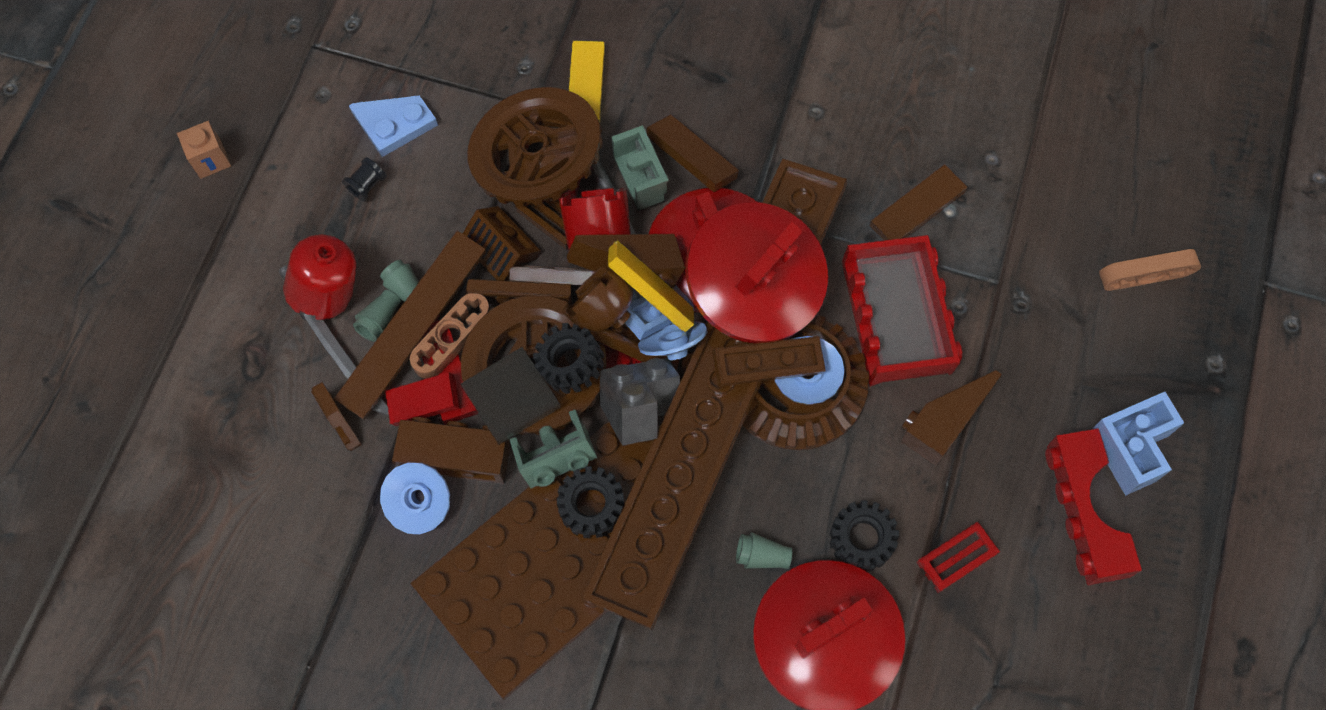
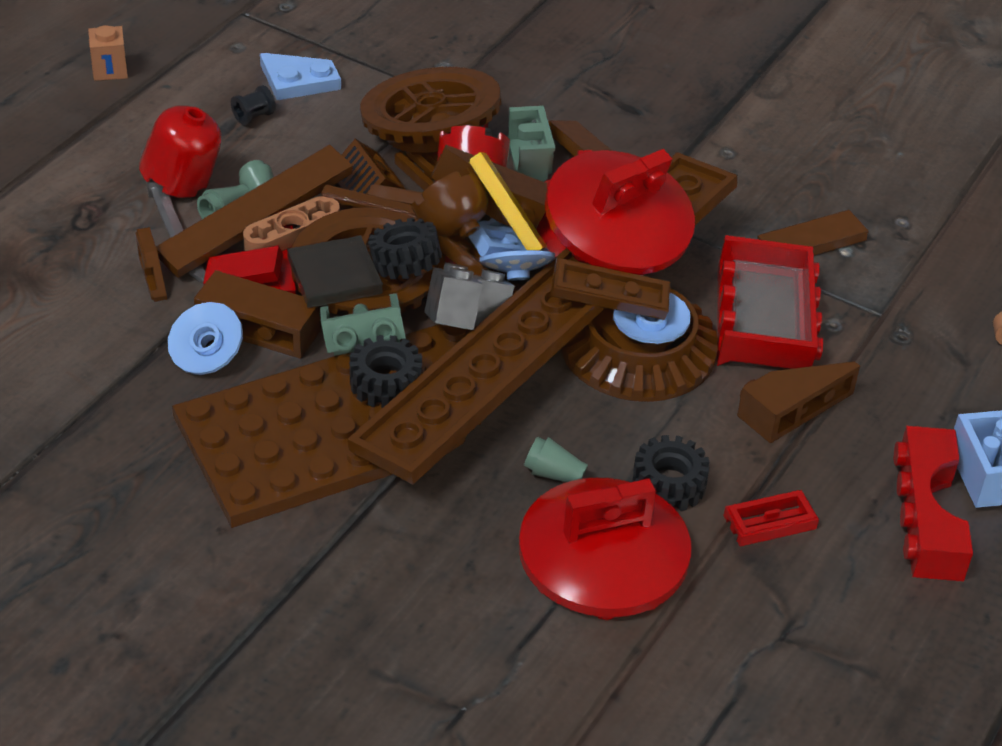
camera: 10 degrees right, 25 degrees down
(587, 72) = (508, 72): yellow tile -> none

